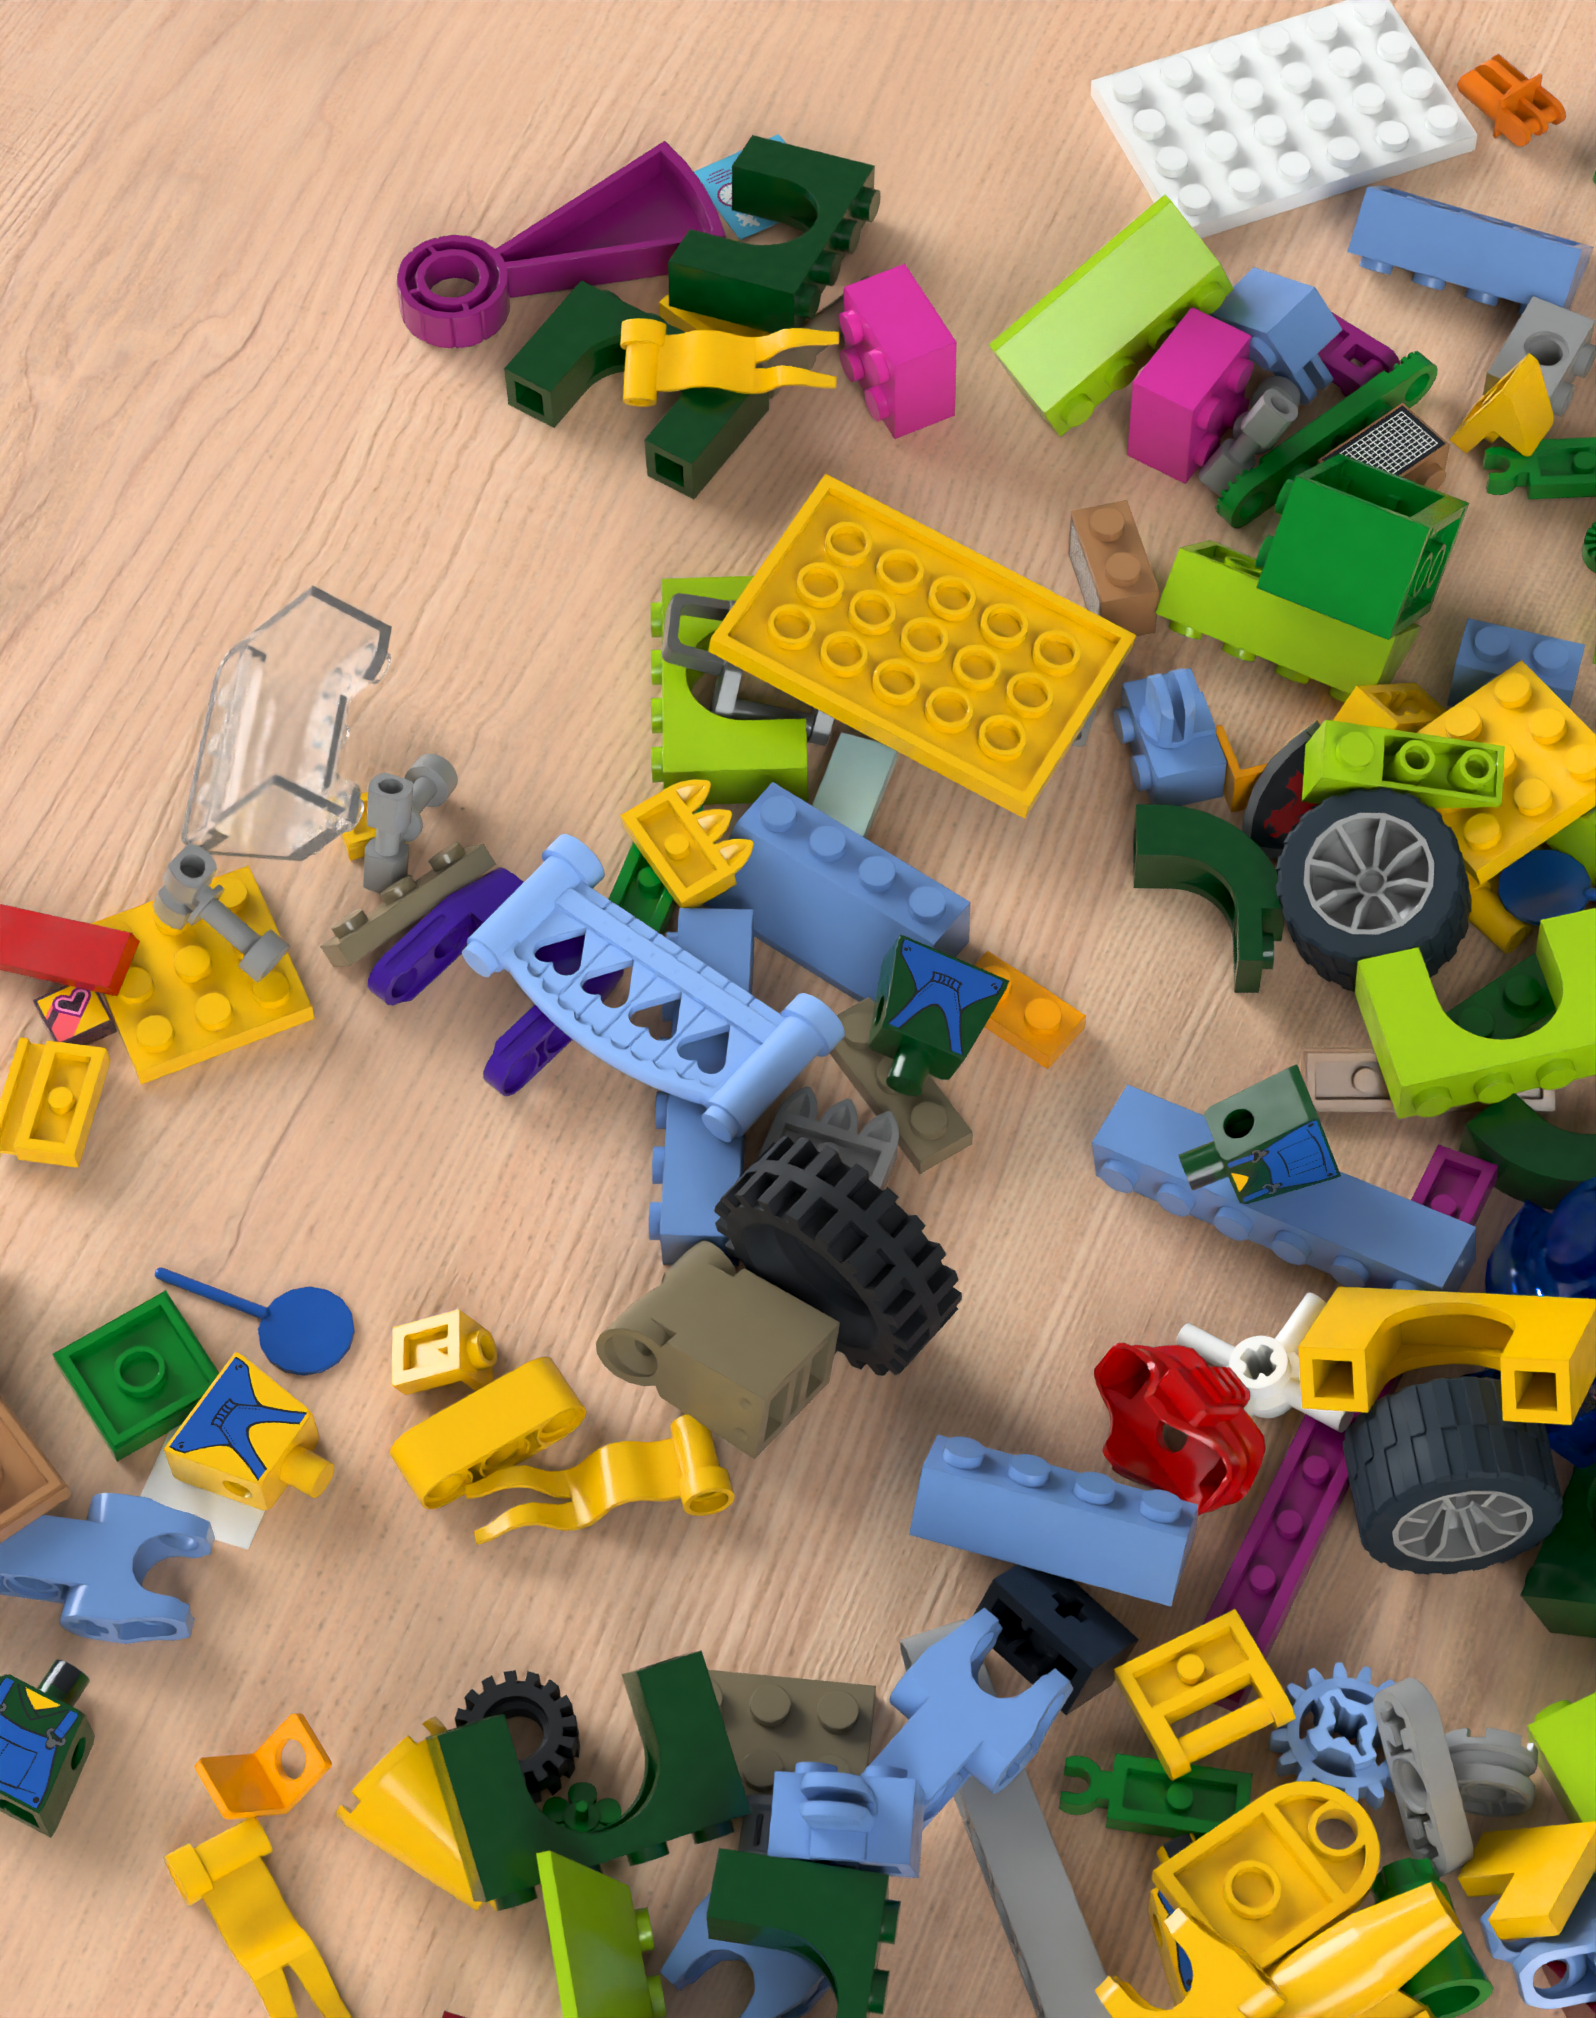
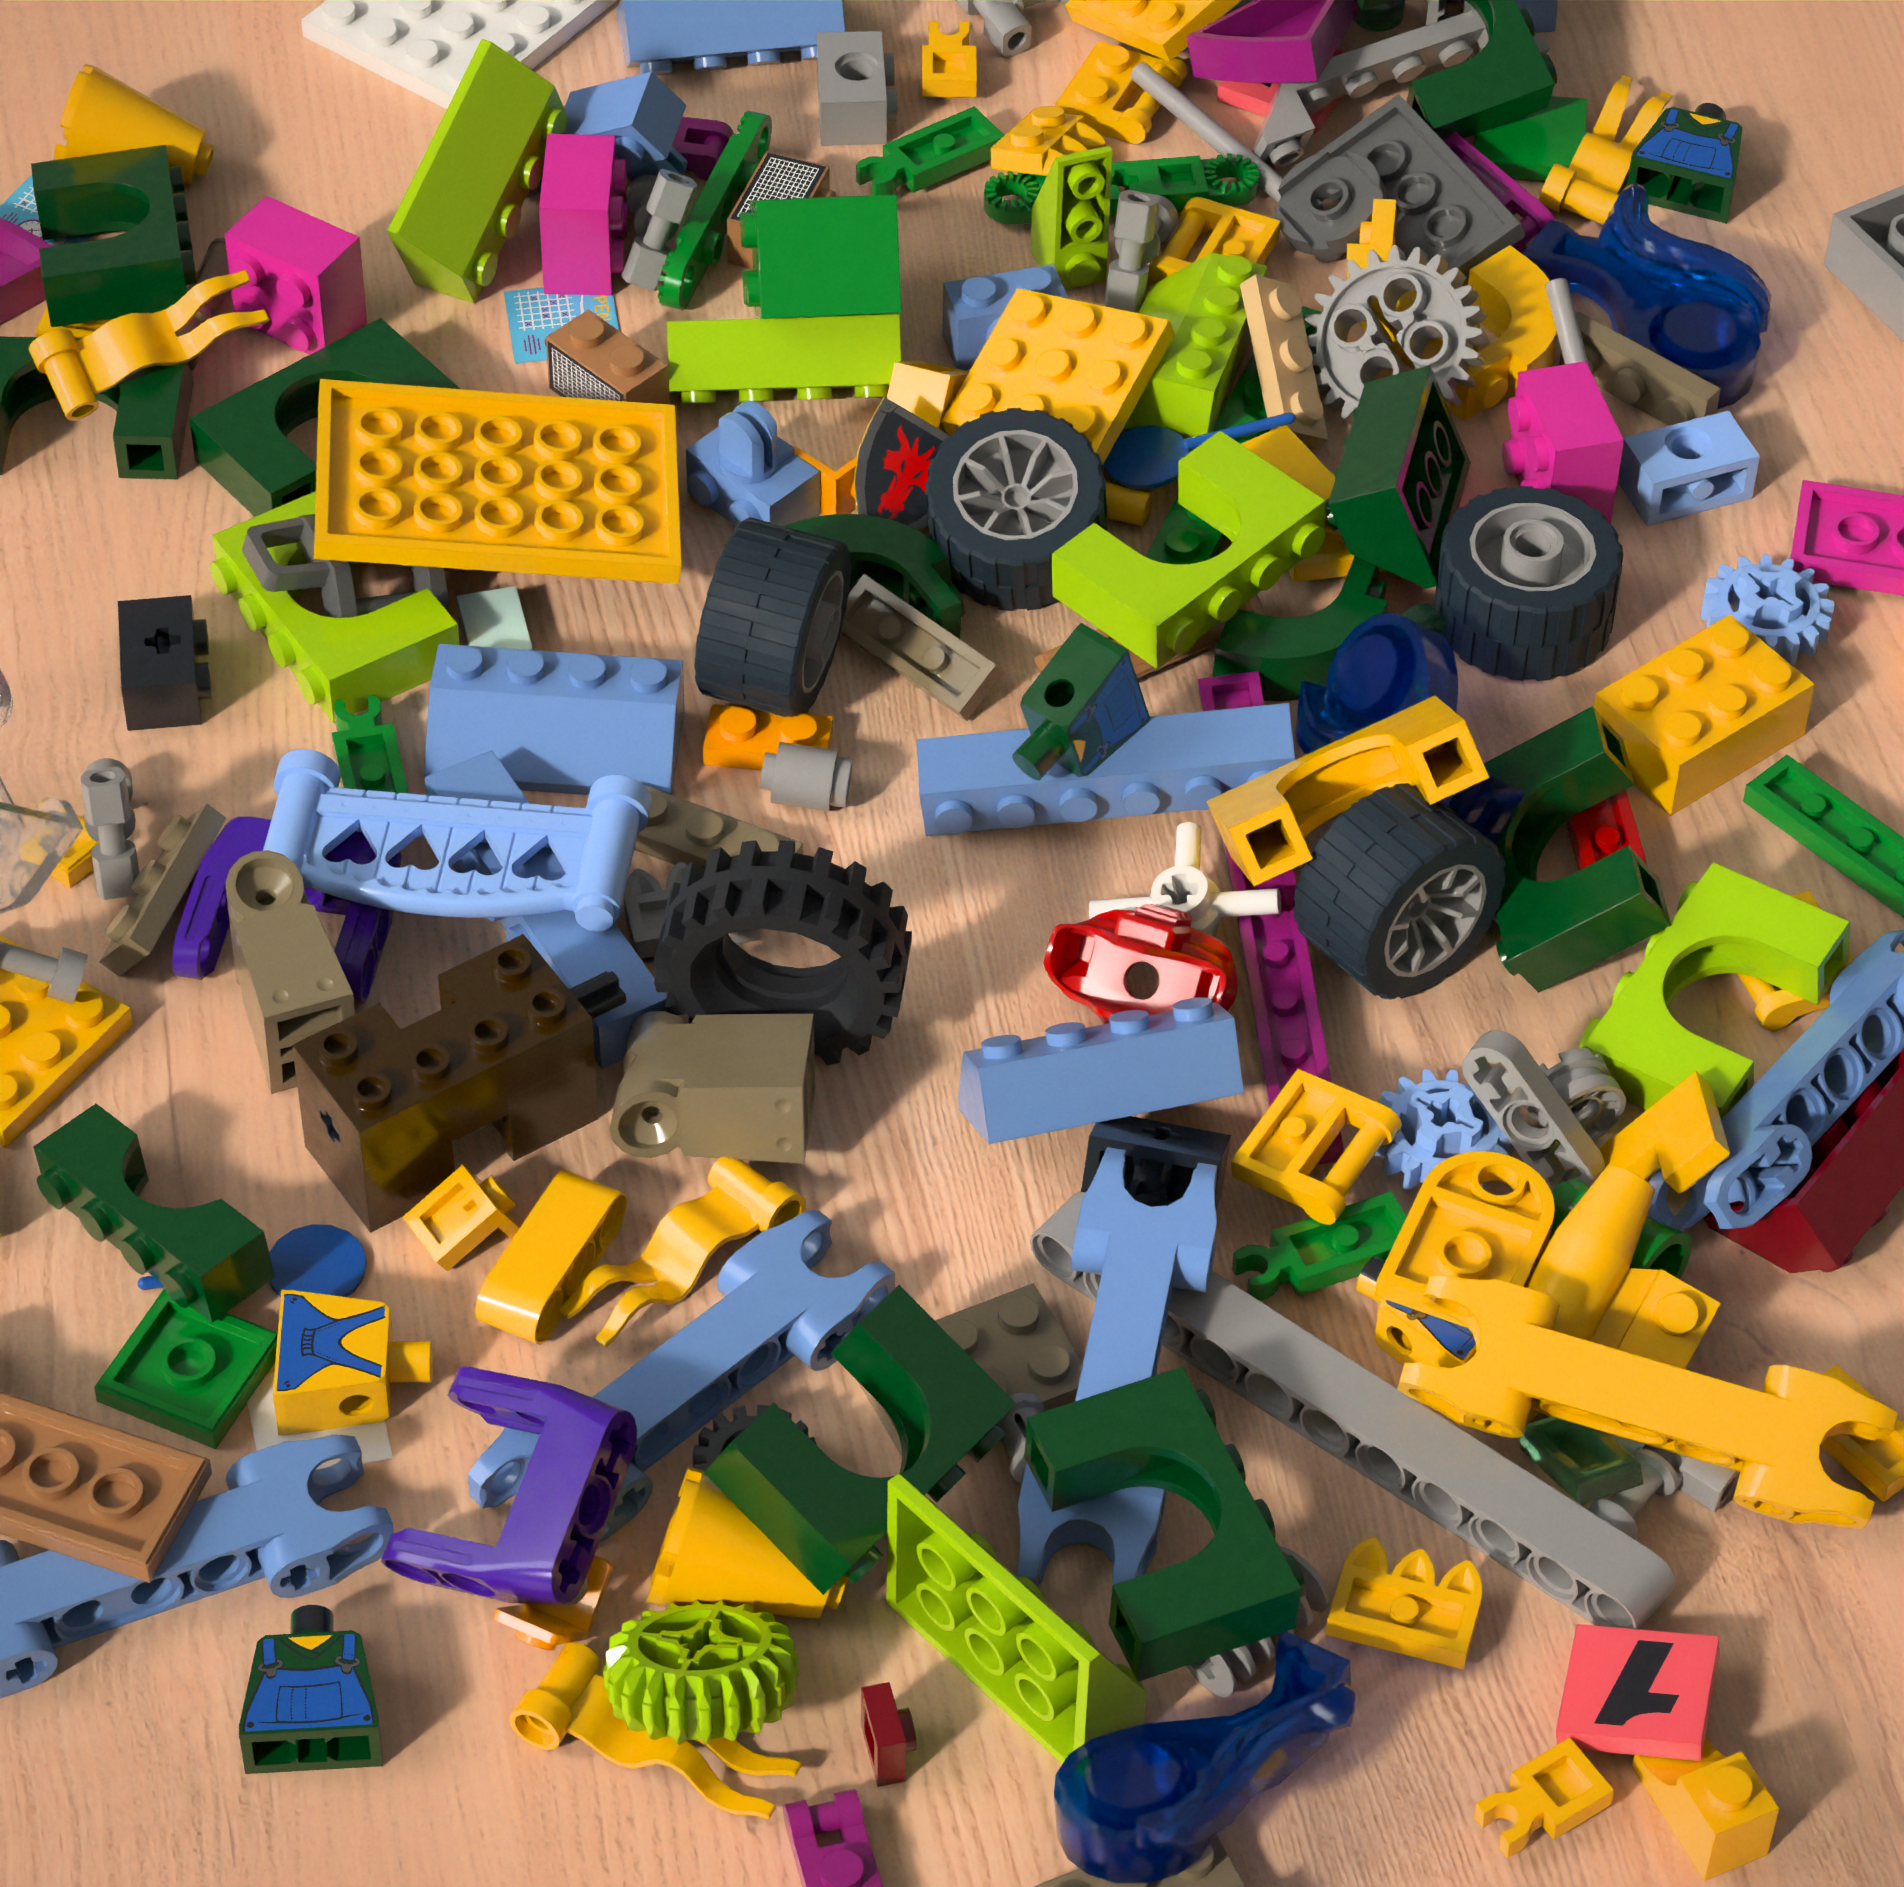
camera: 35 degrees left, 10 degrees down
(200, 1275) = (199, 1253): none -> dark green arch
(312, 1684) = (559, 1503): none -> dark purple connector
(326, 1935) = (701, 1671): none -> lime gear
(431, 1049) = (282, 961): none -> dark tan piece
(514, 1618) = (767, 1317): none -> medium blue piece
(546, 1222) = (499, 1052): none -> dark brown piece
(550, 680) = (161, 664): none -> black brick
(683, 844) = (394, 727): yellow plate -> none
(848, 1818) = (1111, 1342): medium blue brick -> none
(850, 120) = (114, 117): none -> yellow cone
(901, 468) = (246, 435): none -> dark green arch
(929, 1012) = (708, 756): dark green torso -> none
(1019, 1067) = (806, 776): none -> light grey brick
(1071, 900) = (772, 618): none -> black wheel
(1113, 476) = (537, 315): none -> medium azure sticker
(1204, 982) = (918, 648): none -> dark tan plate
(1429, 767) = (943, 399): lime slope -> none
(1512, 409) = (857, 119): yellow slope -> none

